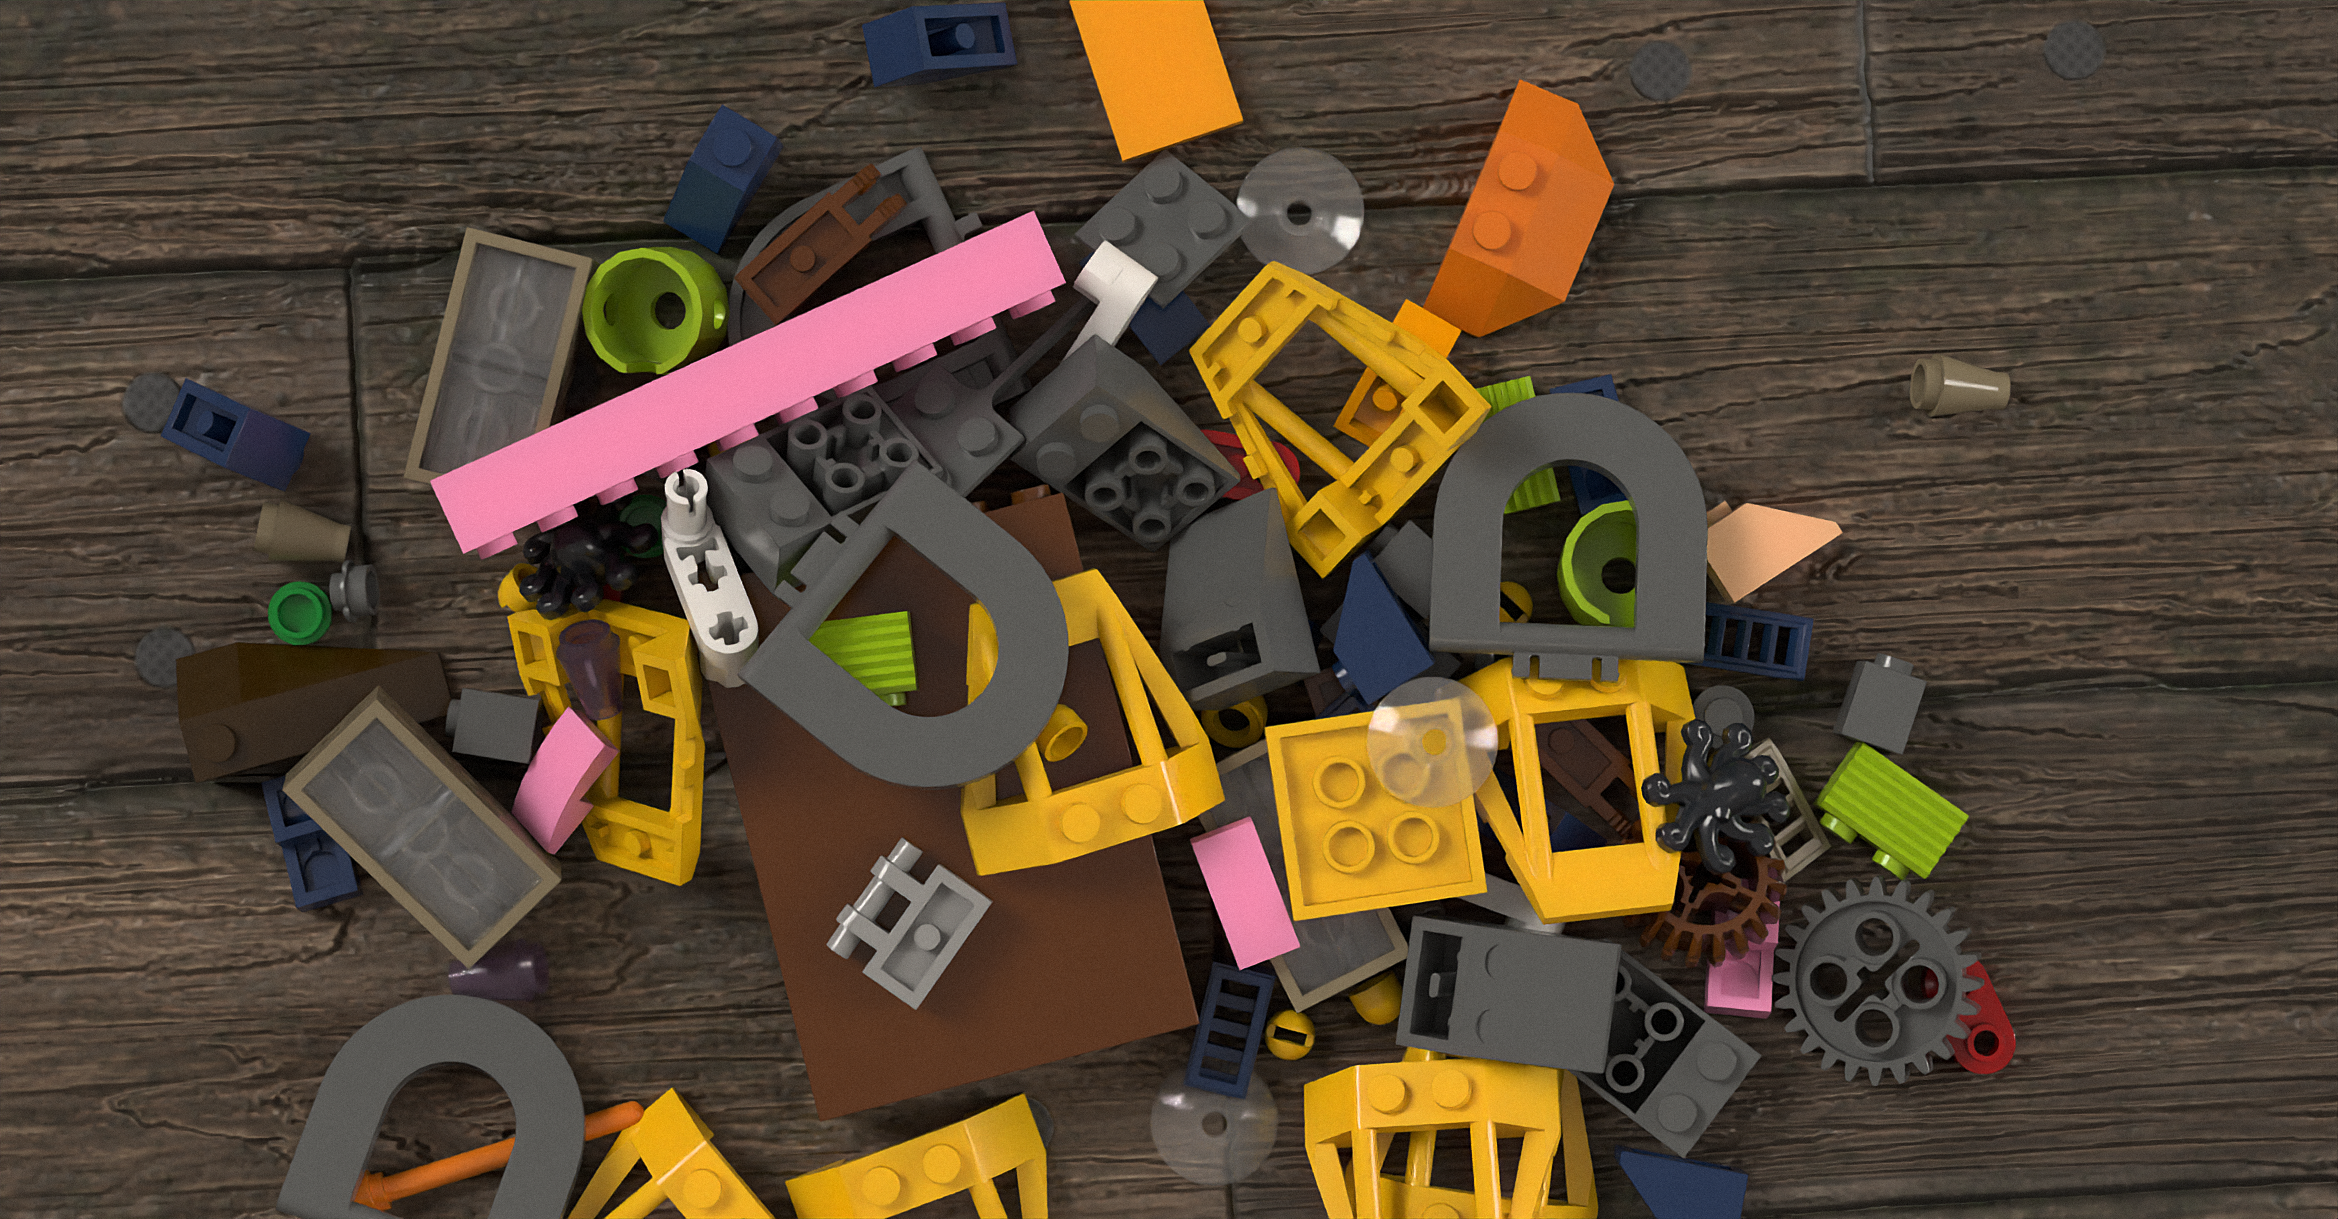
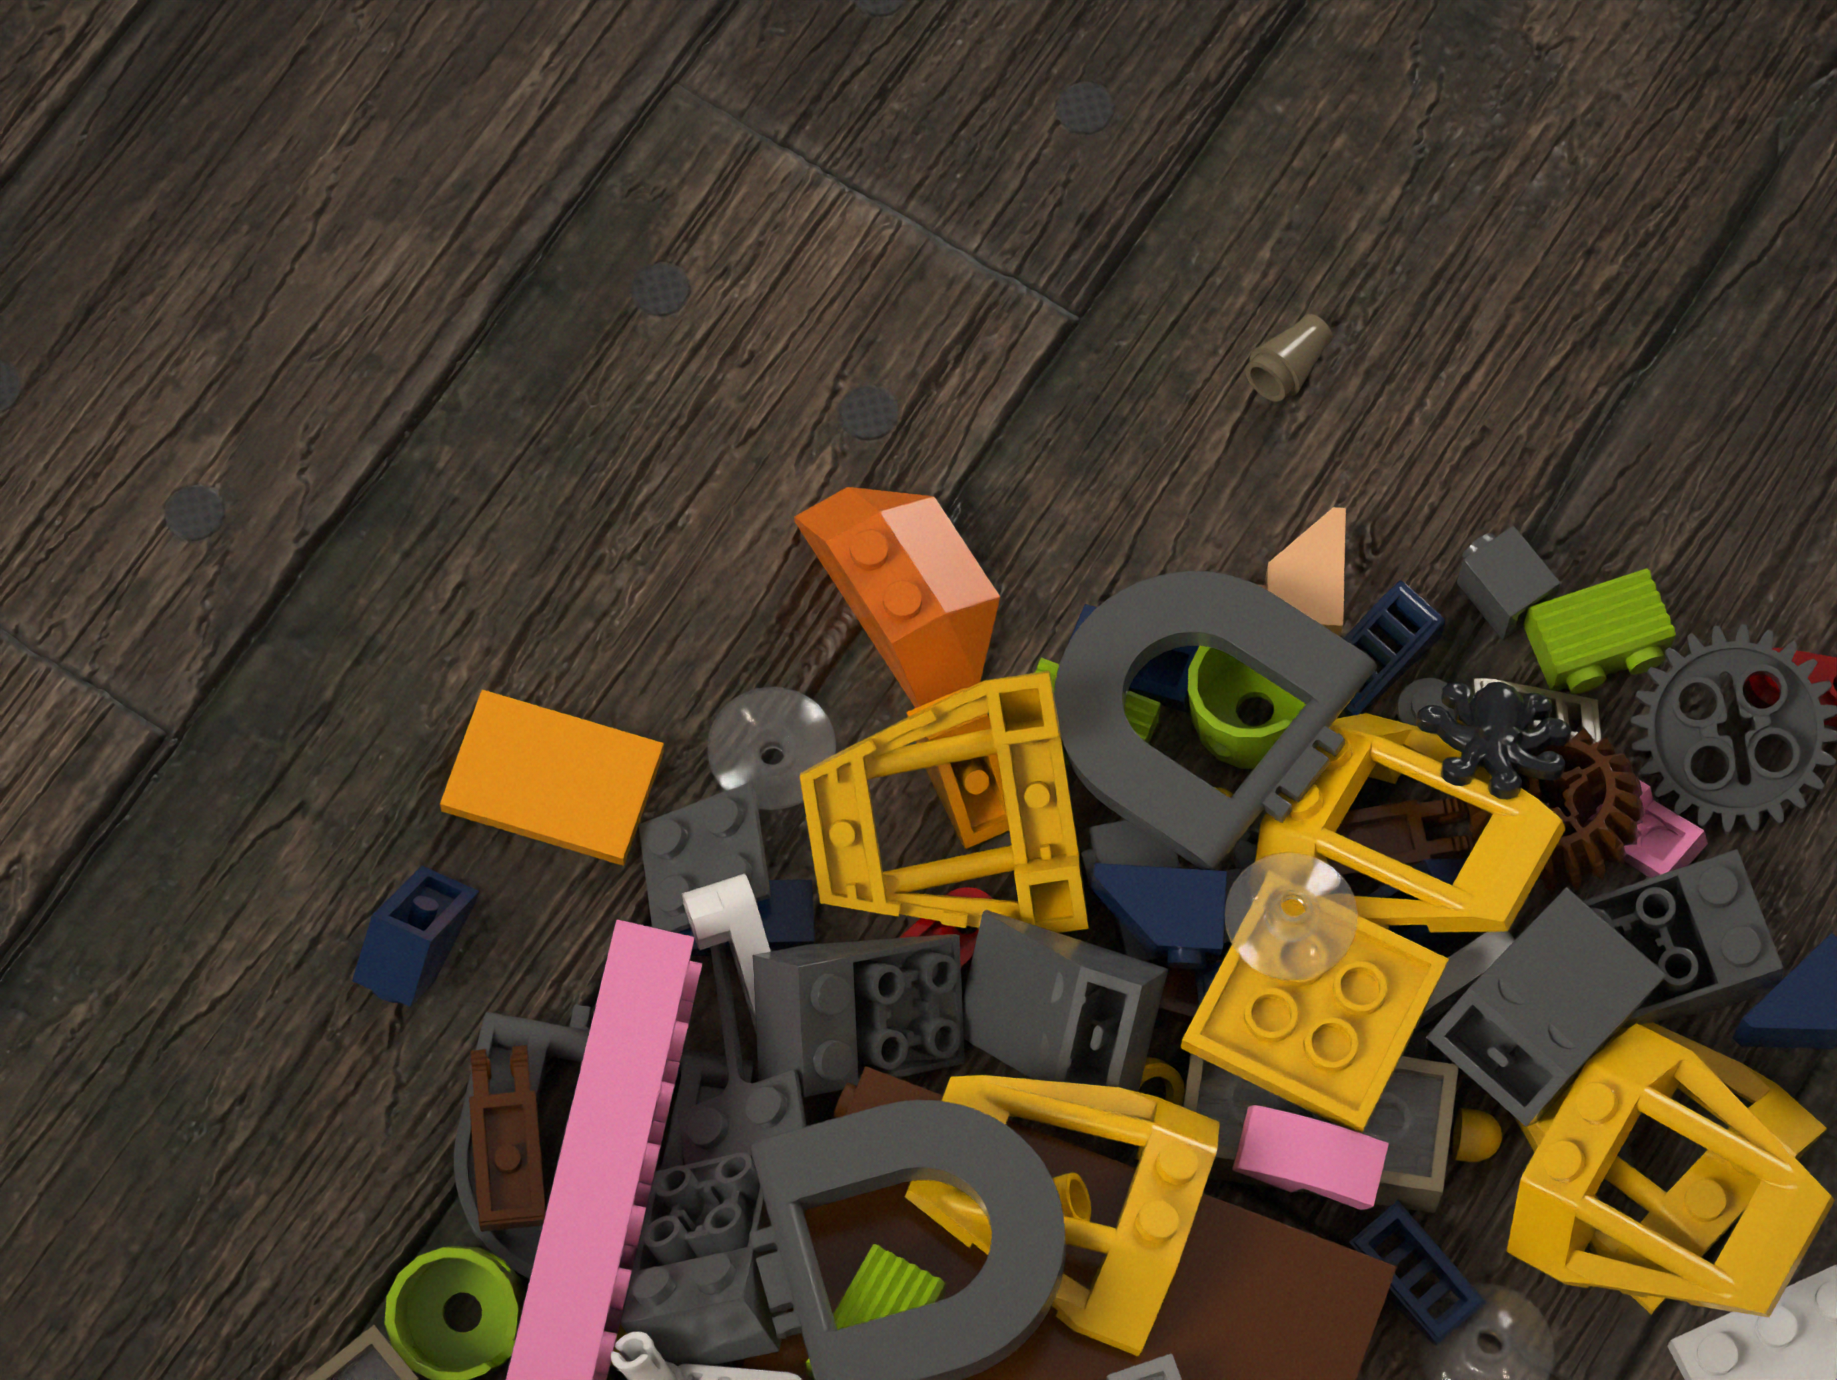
camera: 55 degrees left, 20 degrees down
(721, 178) = (388, 1187): dark blue slope -> none
(1293, 1021) = (1465, 1242): yellow hinge -> none

